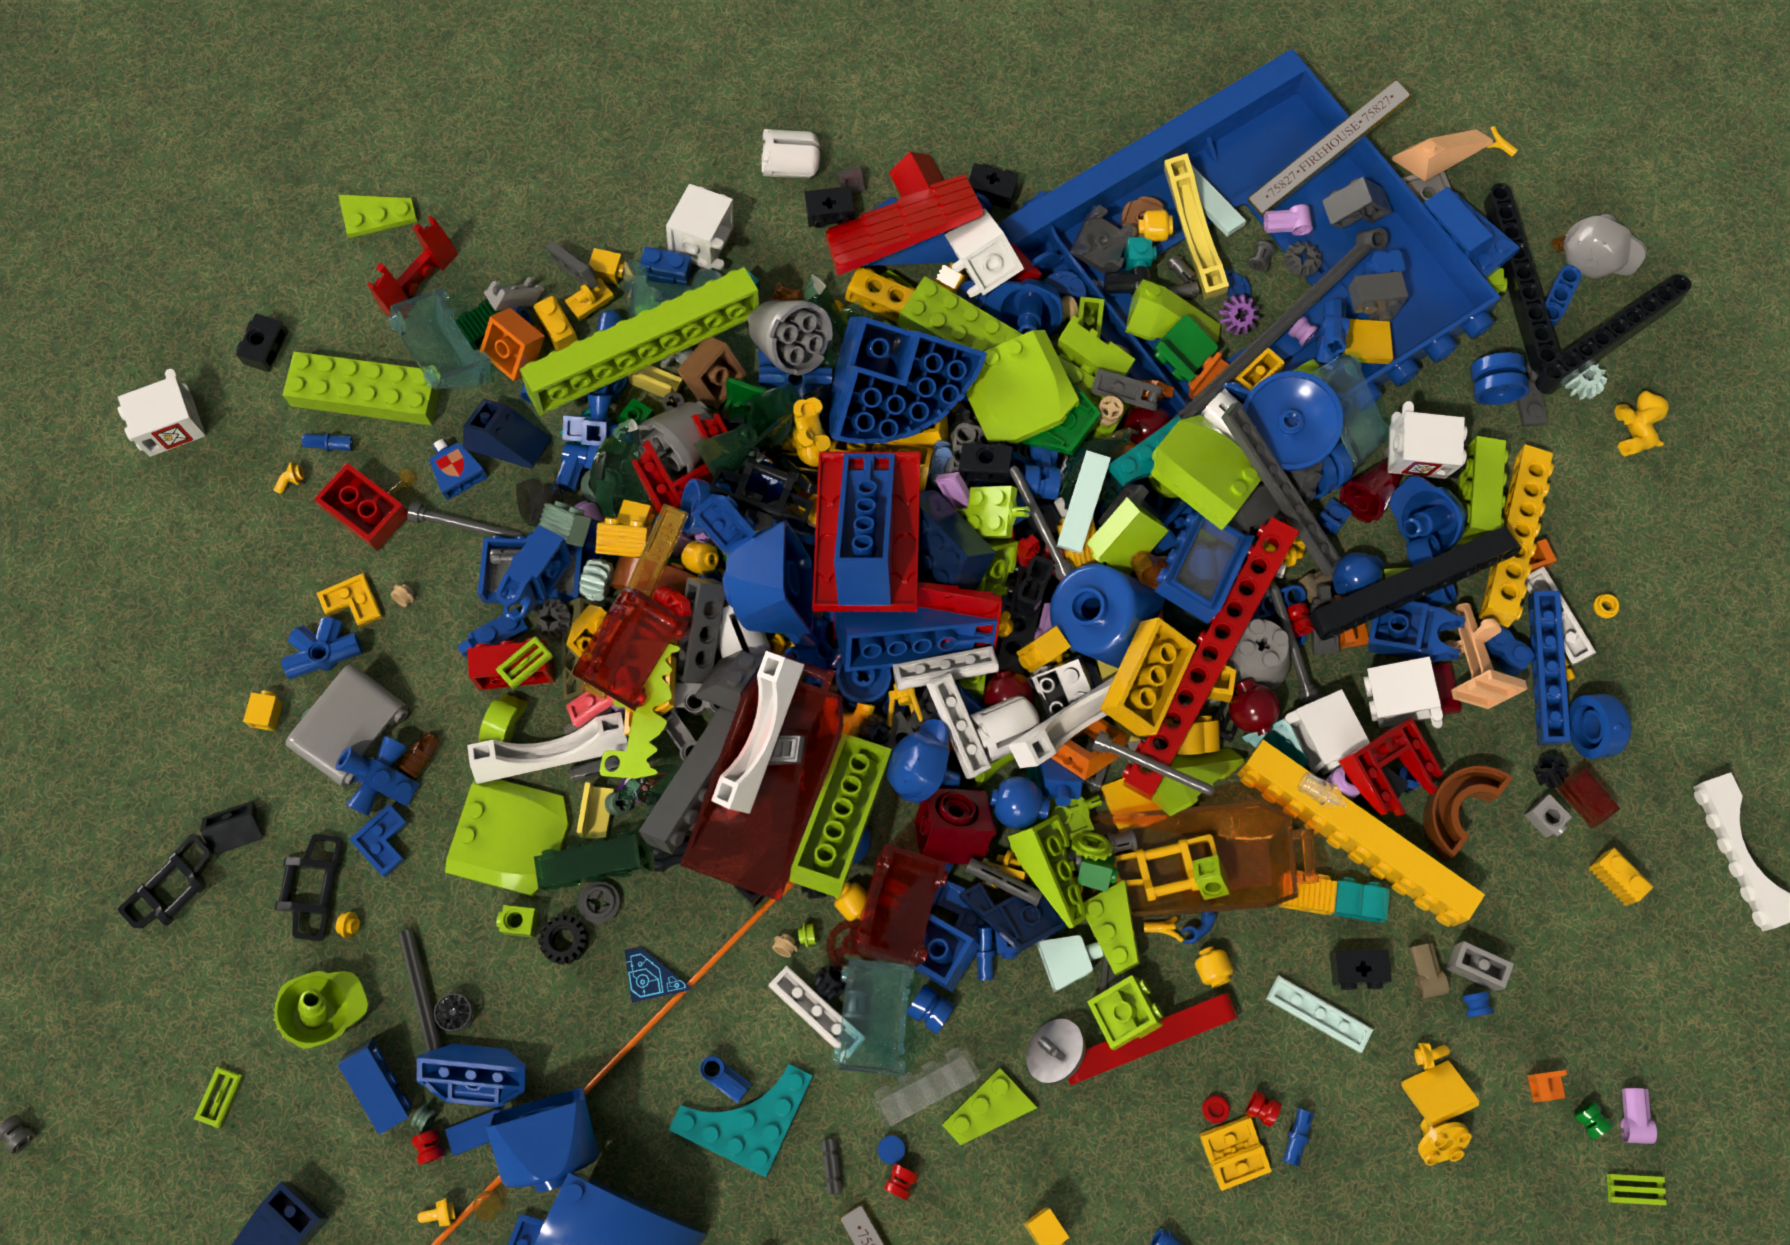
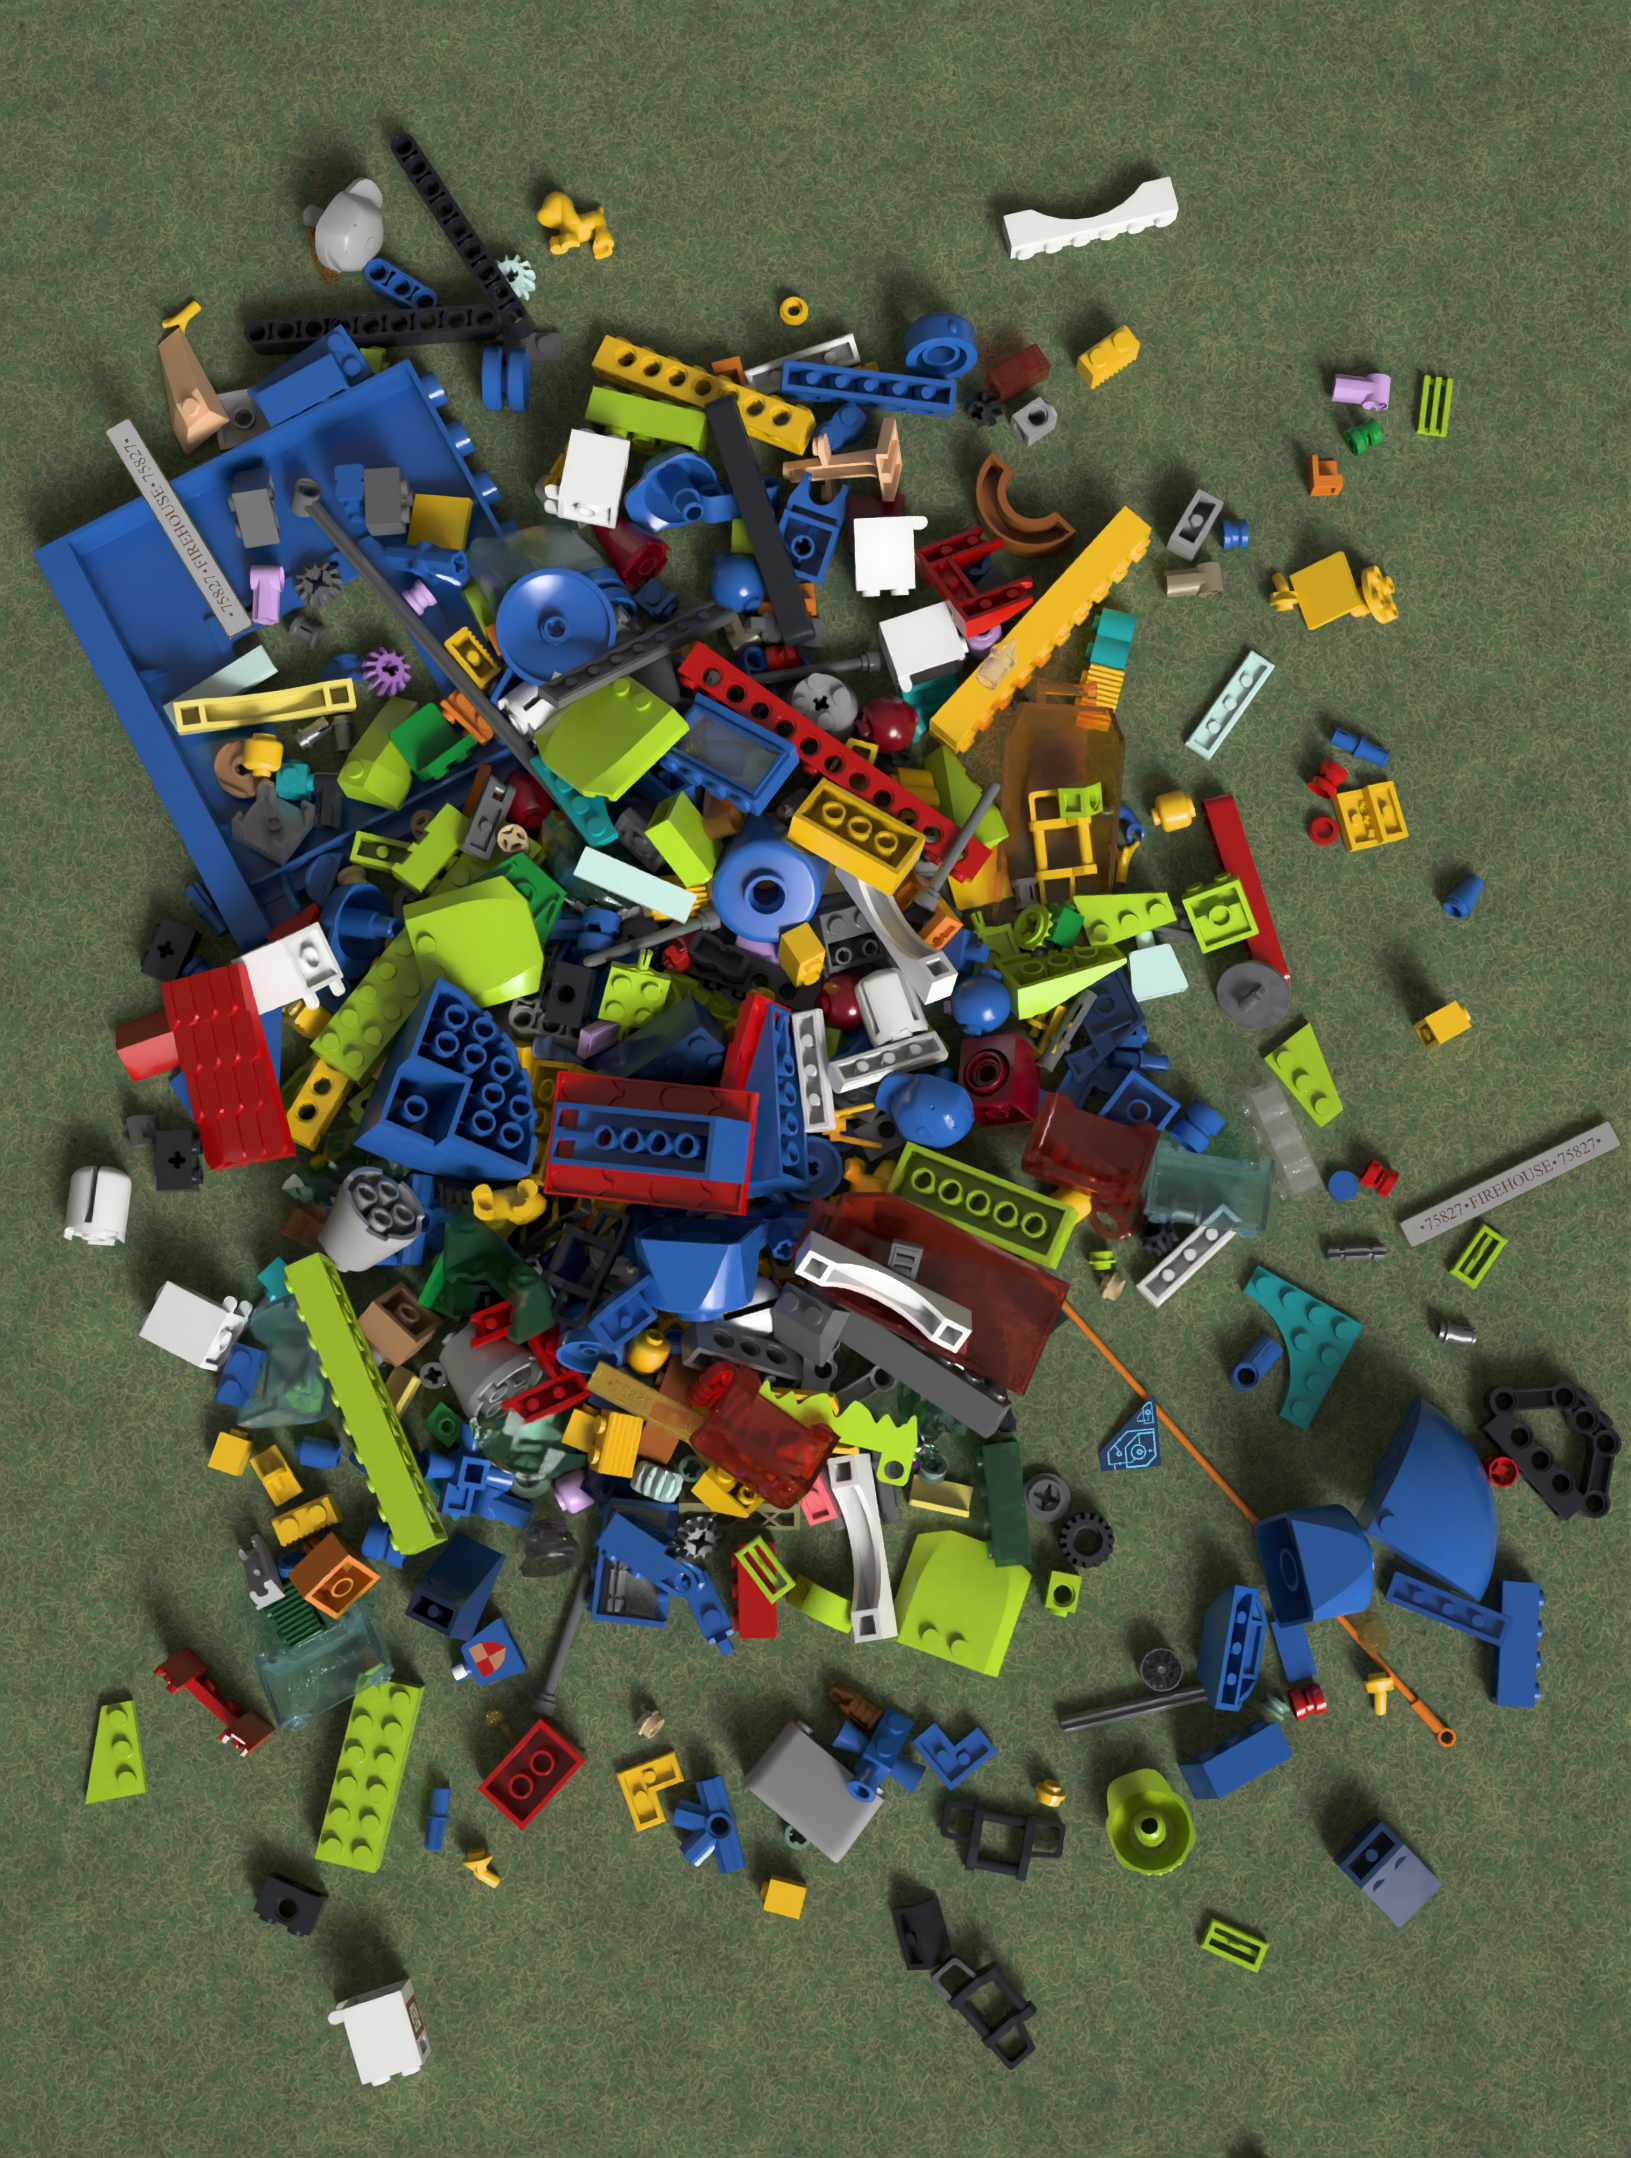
camera: 80 degrees left, 10 degrees up
(566, 522) = (588, 1515): sand green brick -> none
(572, 265) = (229, 1494): dark grey plate -> none
(874, 730) = (879, 1161): black gear -> none
(1373, 961) = (1183, 636): black brick -> none

